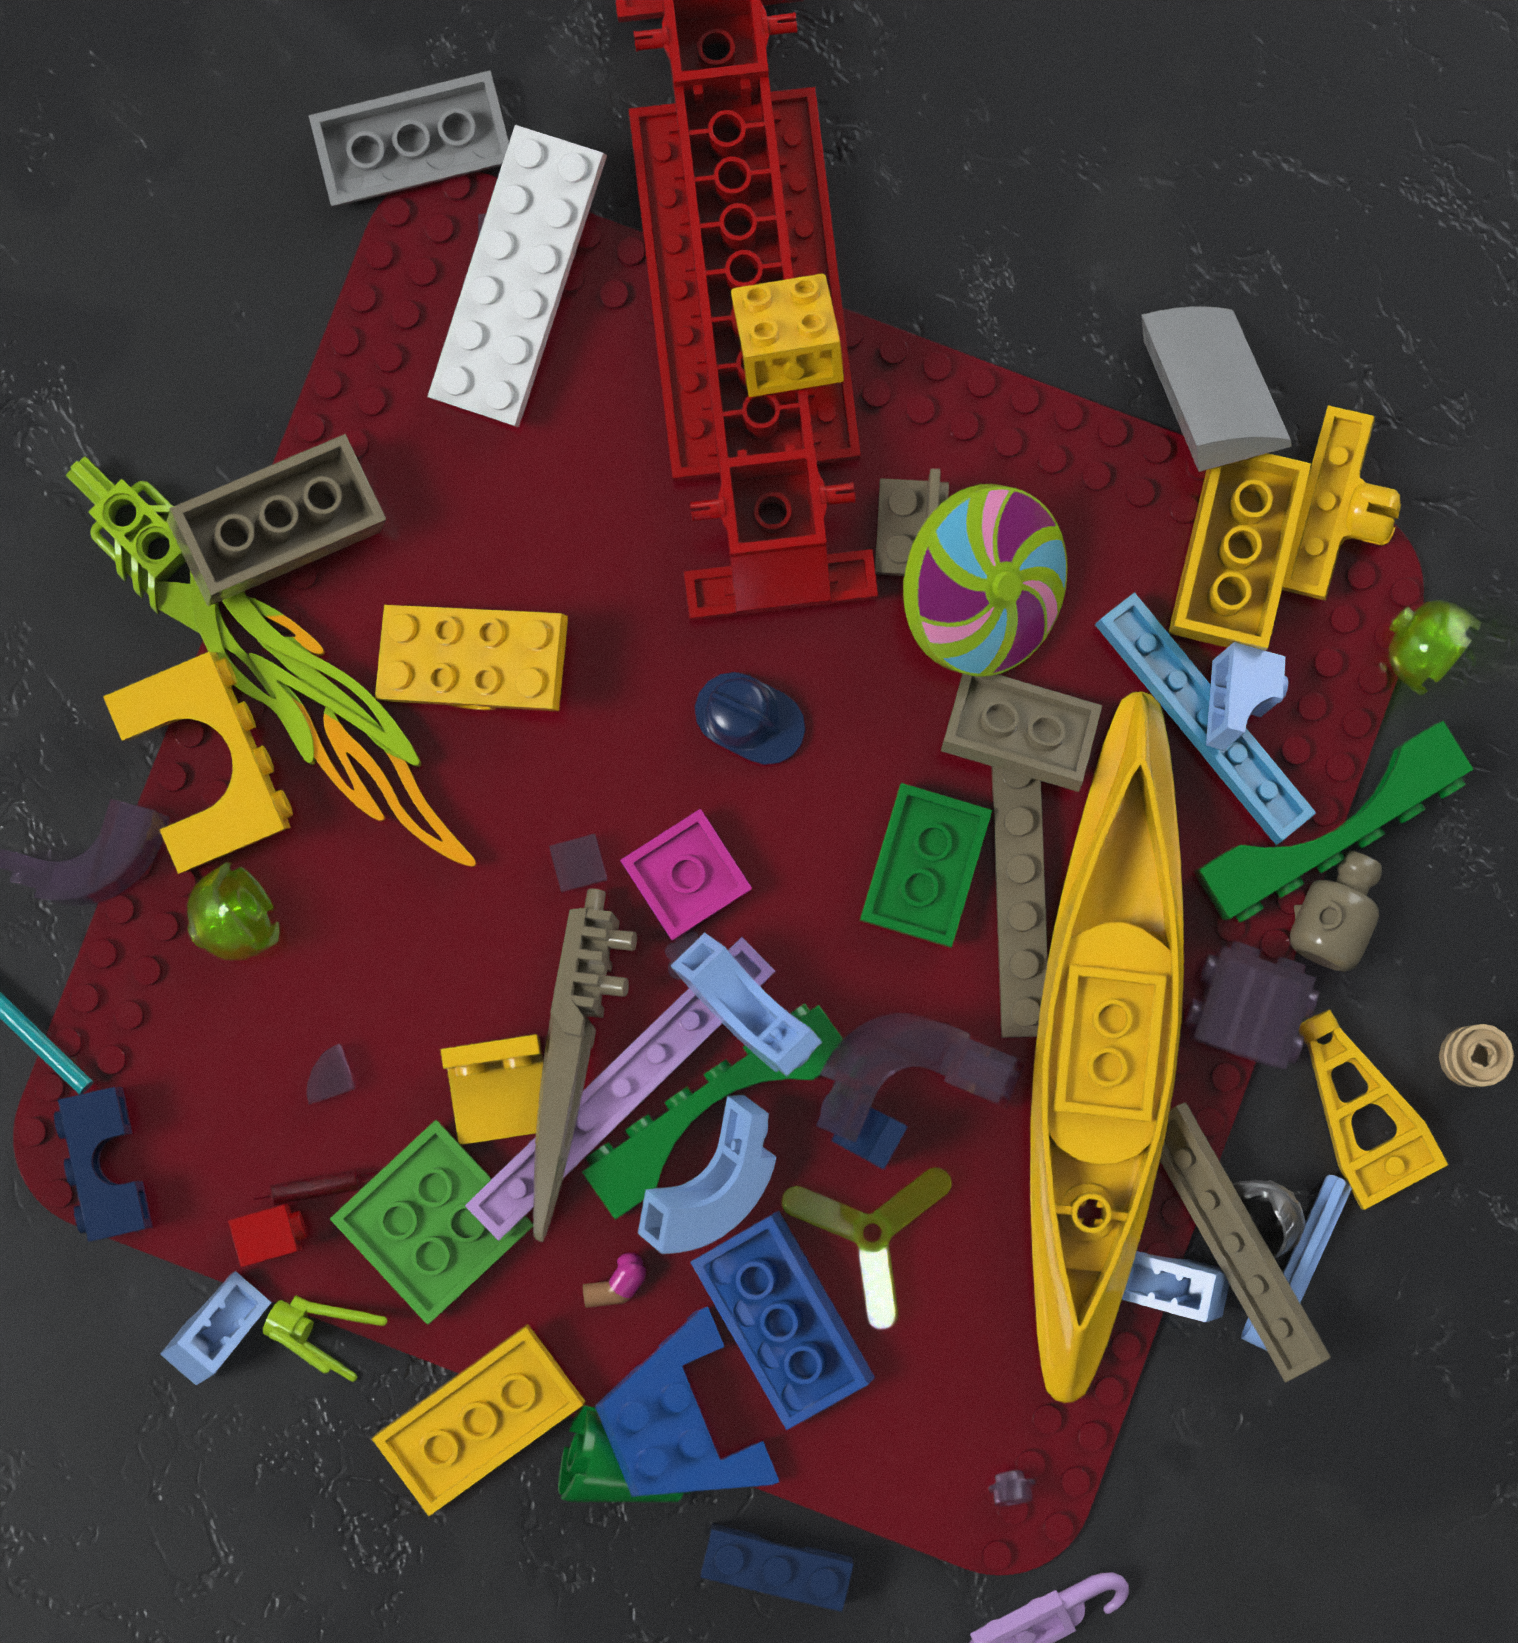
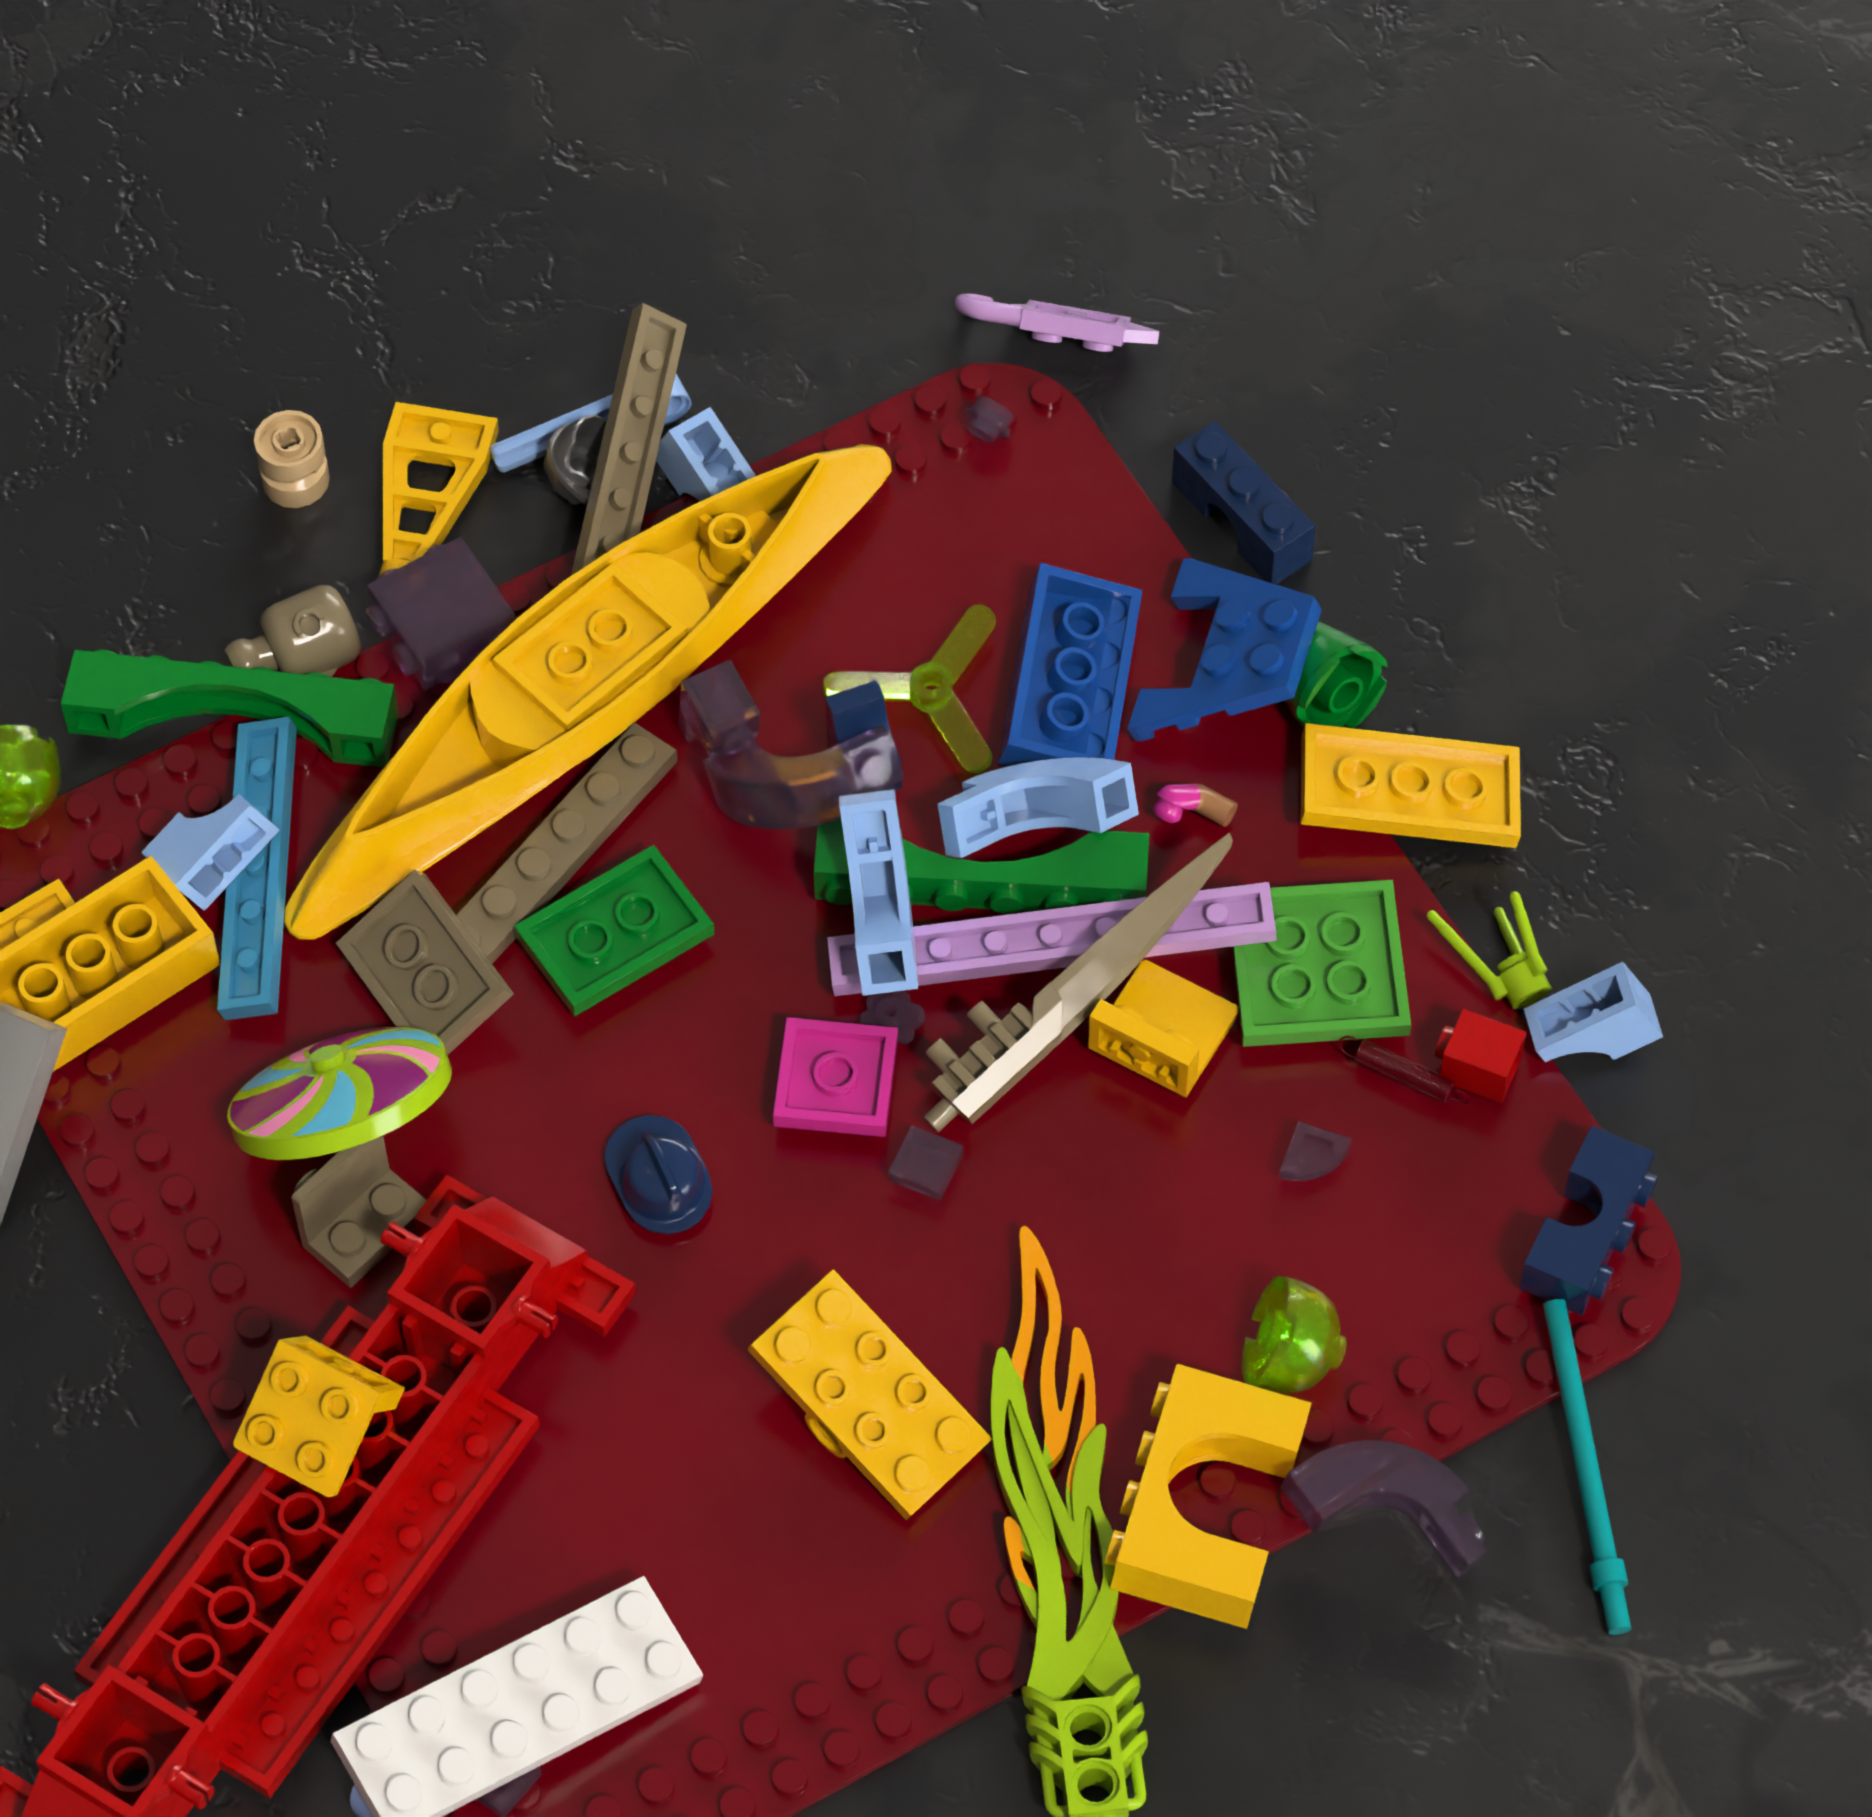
camera: 140 degrees left, 25 degrees down
(276, 520) = (949, 1645): dark tan brick -> none

